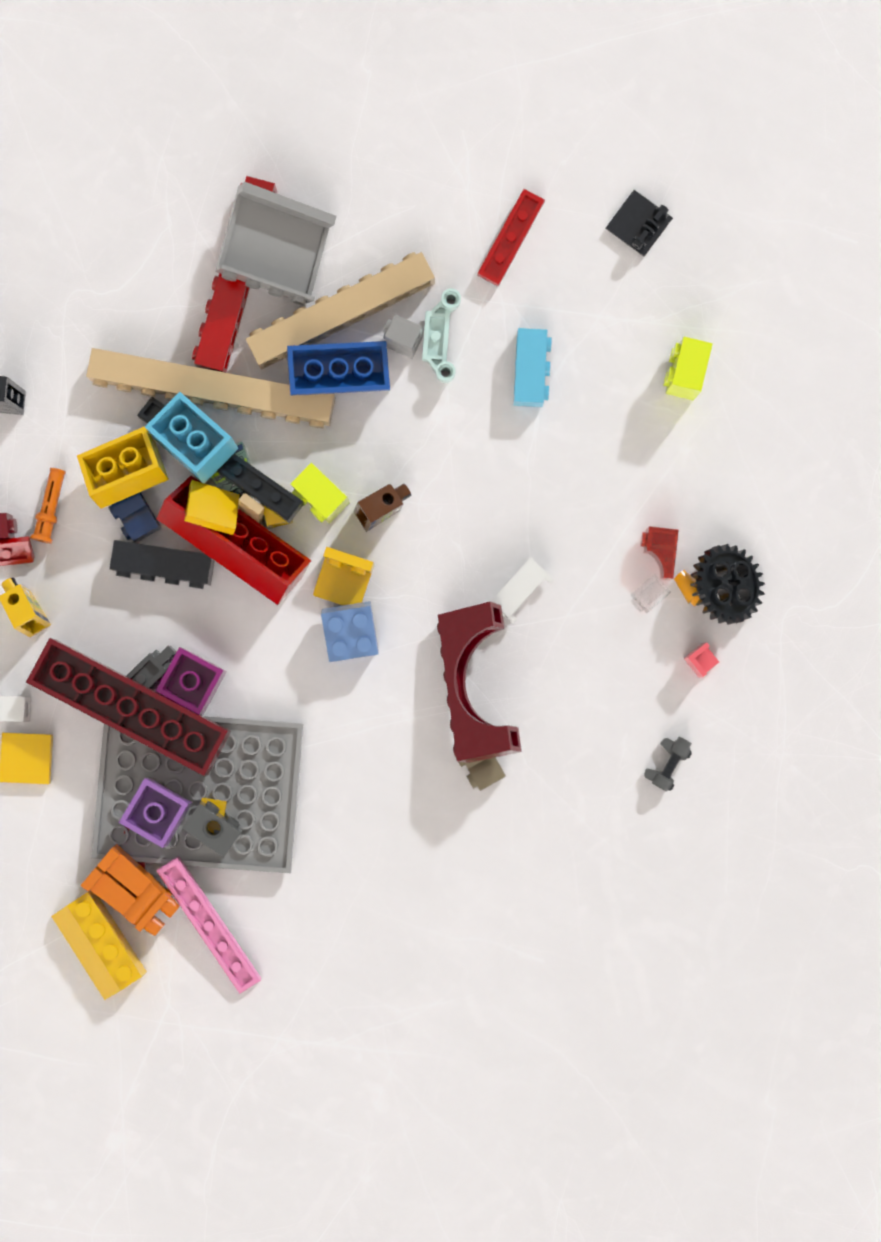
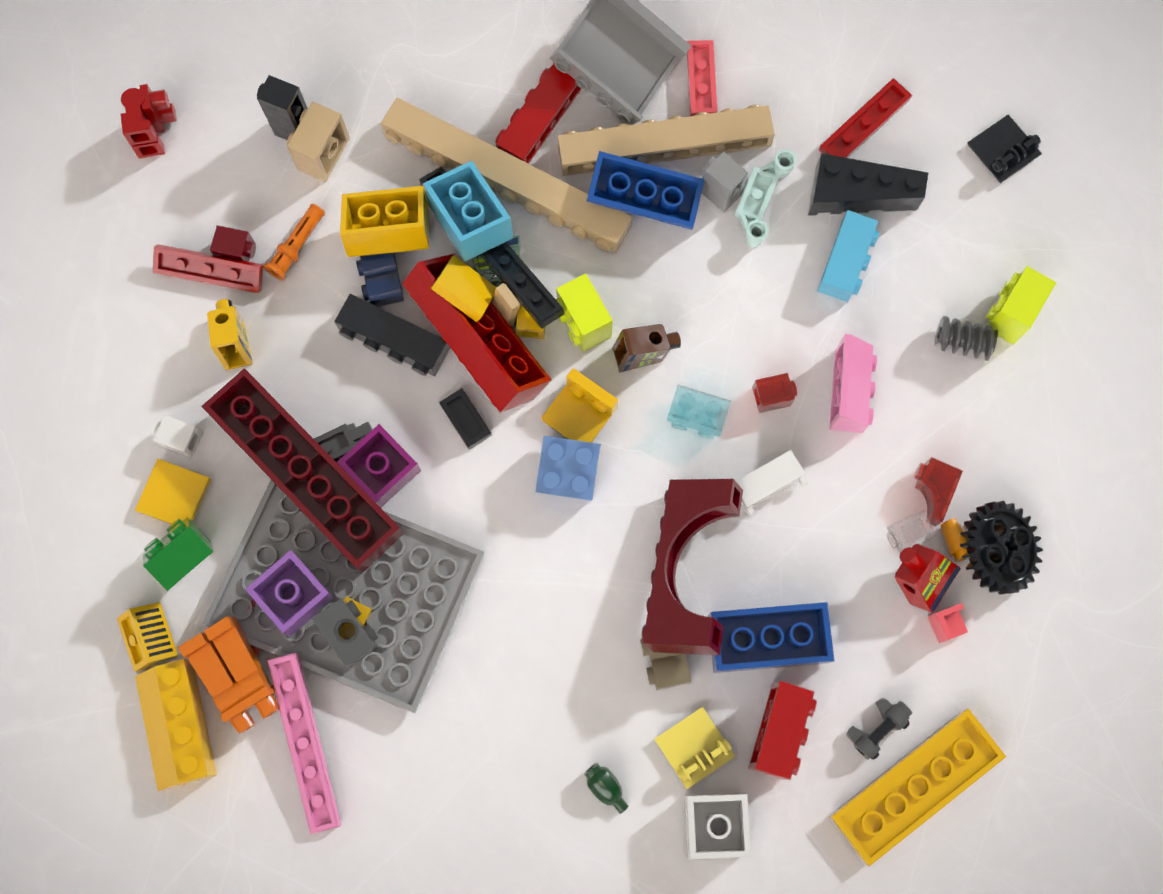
camera: 20 degrees right, 10 degrees down
(37, 411) = (318, 141): none -> tan brick
(48, 881) = (146, 635): none -> yellow panel
(49, 808) = (176, 552): none -> green brick
(249, 614) = (465, 418): none -> black tile
(355, 241) = (701, 77): none -> coral plate
(443, 547) = (698, 411): none -> clear light blue bracket
(463, 881) = (605, 787): none -> dark green plant
(503, 509) = (774, 392): none -> clear red brick
(524, 300) = (864, 186): none -> black wedge
(525, 826) = (694, 747): none -> light yellow hinge
(561, 719) = (774, 637): none -> blue brick
(561, 883) = (717, 826): none -> white brick
(567, 483) = (852, 385): none -> bright pink slope
(591, 793) = (782, 730): none -> red brick
(651, 410) = (966, 337): none -> dark grey piece
(671, 628) = (925, 576): none -> red torso
(712, 800) = (917, 787): none -> yellow plate

